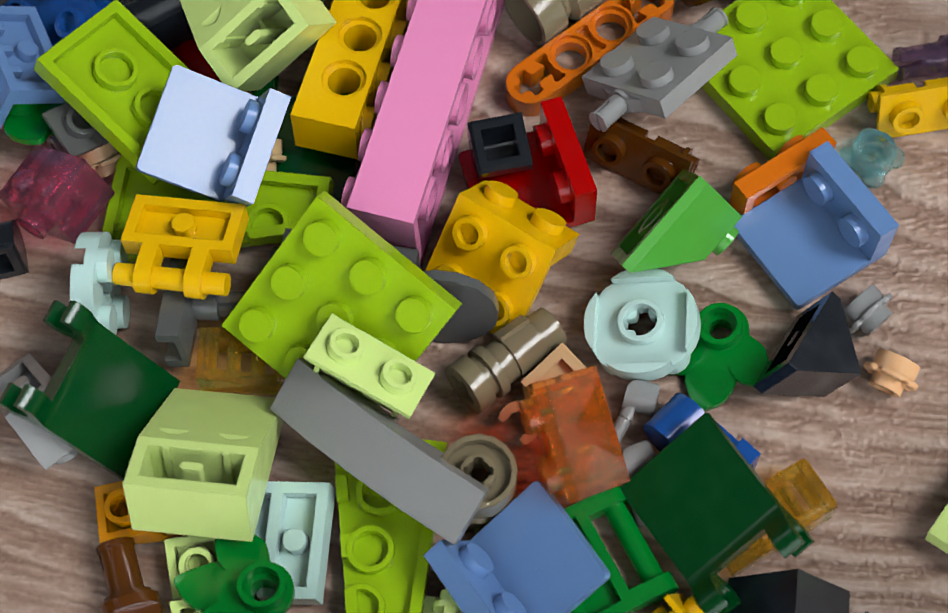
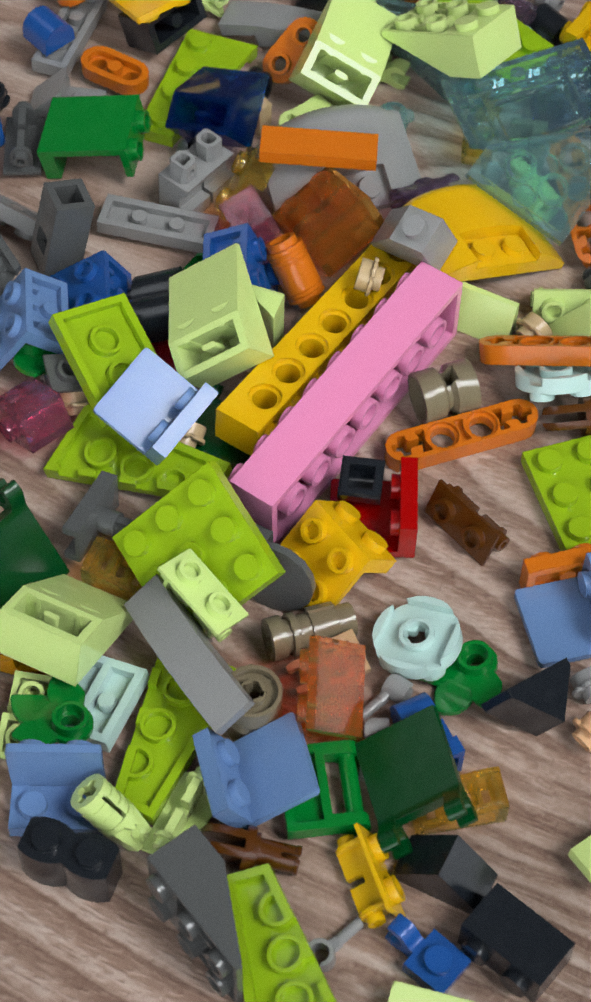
camera: 15 degrees right, 10 degrees down
(93, 283) = (39, 479): light aqua plate -> none
(180, 230) = (107, 462): yellow plate -> none
(658, 67) = (500, 461): light grey plate -> none
(679, 227) = (472, 577): bright green slope -> none

